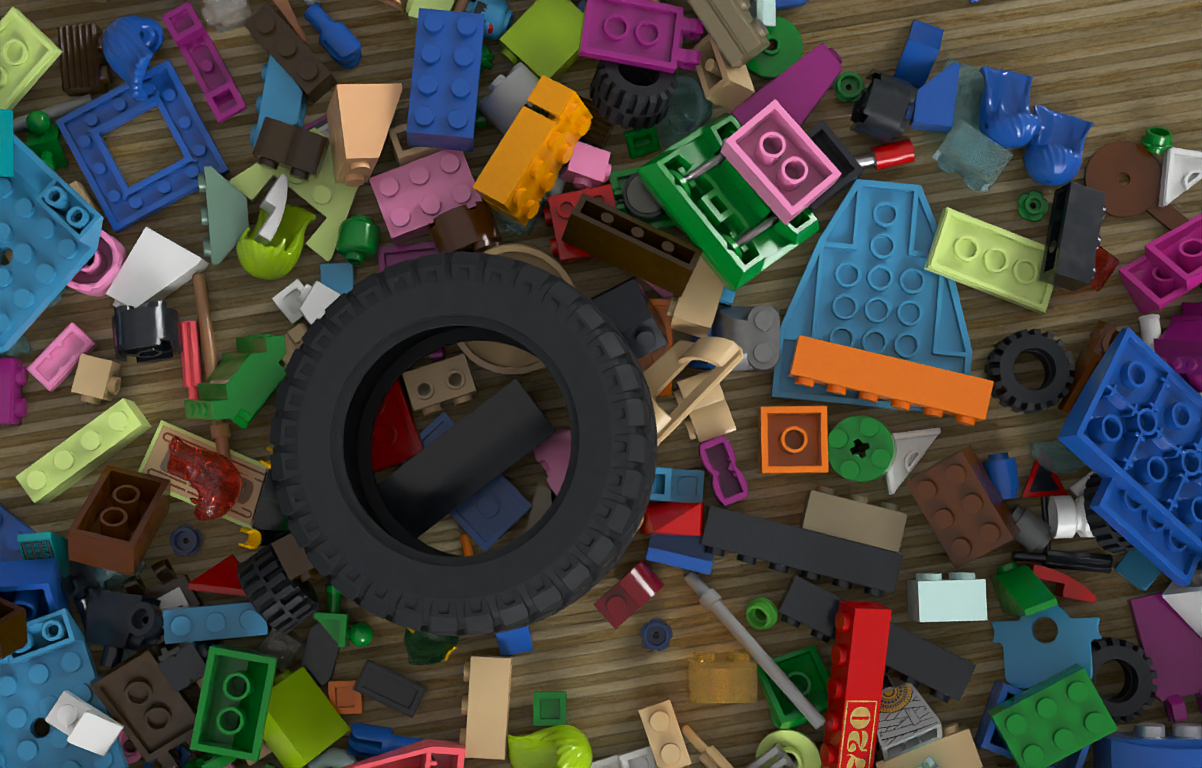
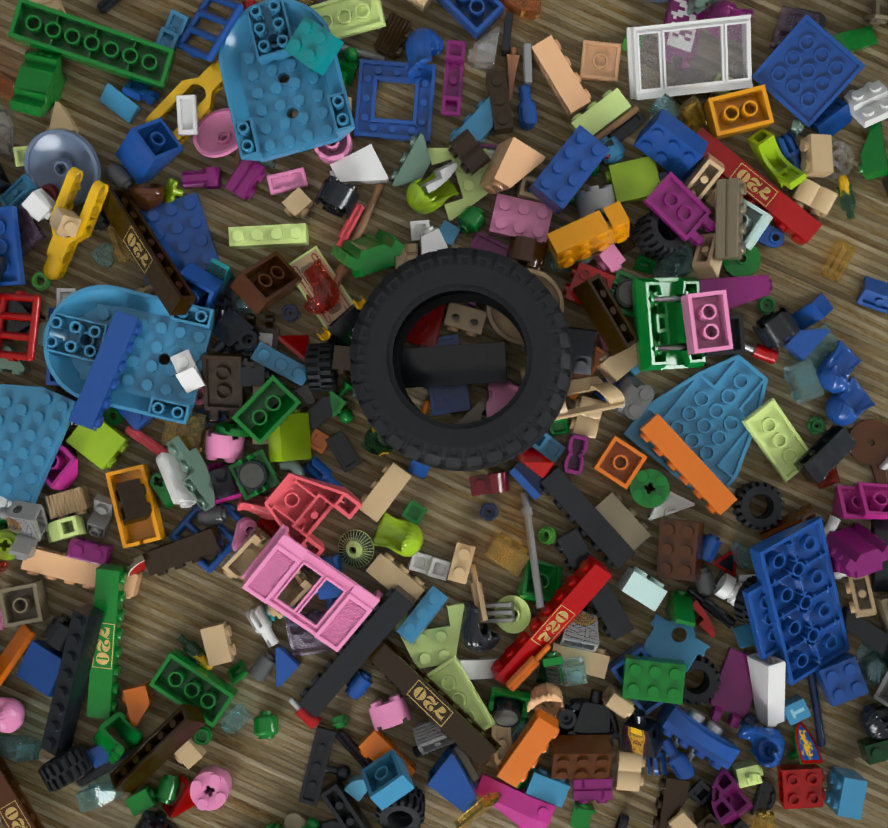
camera: 30 degrees right, 5 degrees up
(674, 448) = (559, 427): none -> green slope

